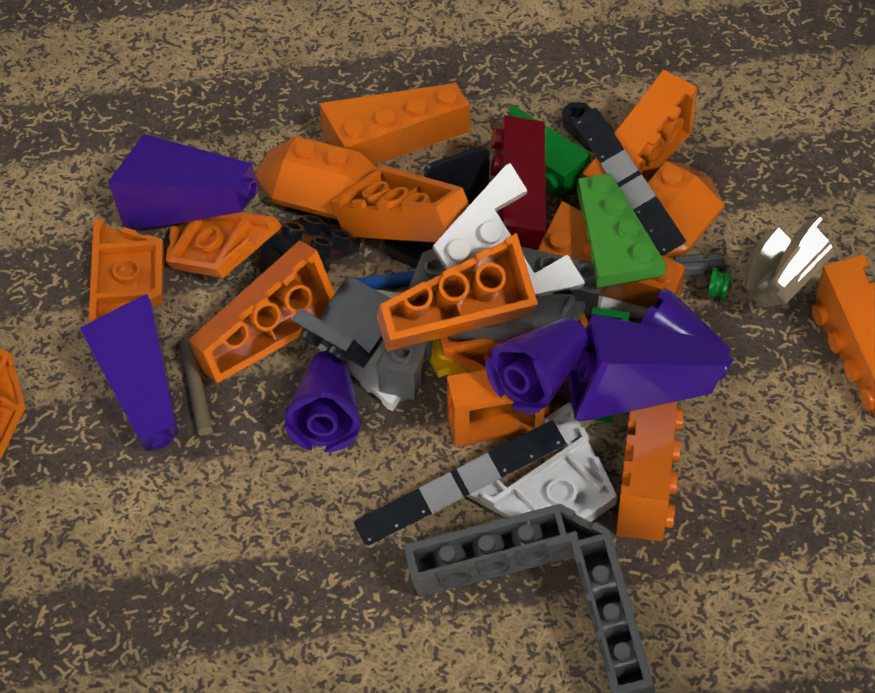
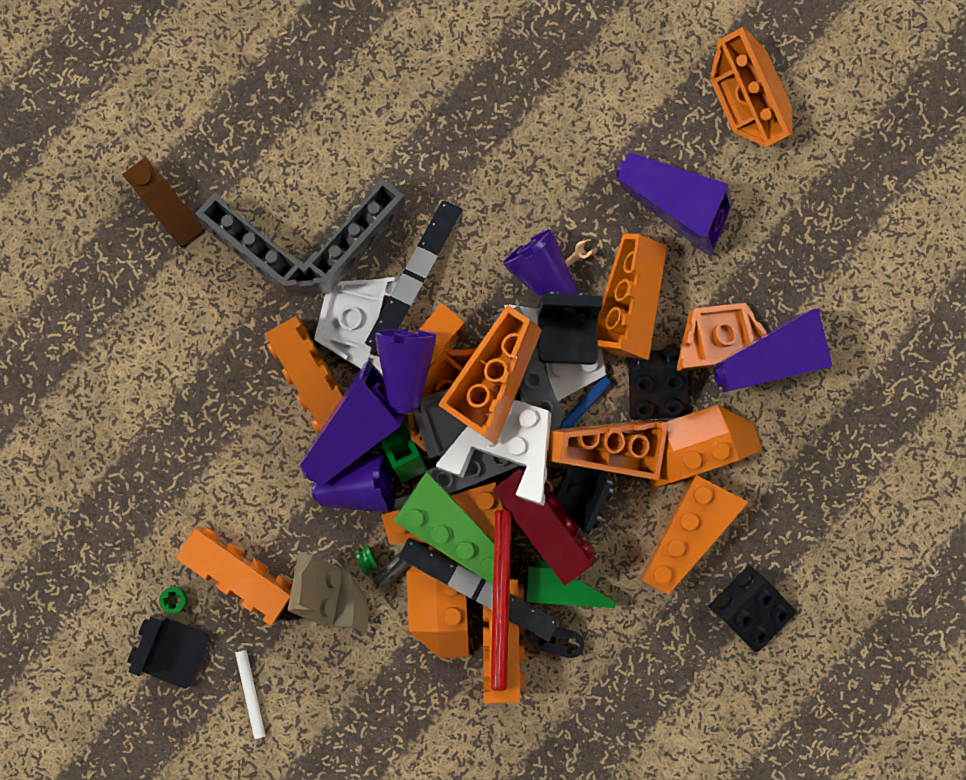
camera: 135 degrees right, 35 degrees up
(124, 269) = (763, 272): orange wing -> none
(196, 389) = (636, 224): dark tan bar -> none
(272, 398) = (580, 253): none -> light nougat hand
(393, 52) = (752, 608): none -> black bracket
(612, 147) = (500, 611): none -> red axle

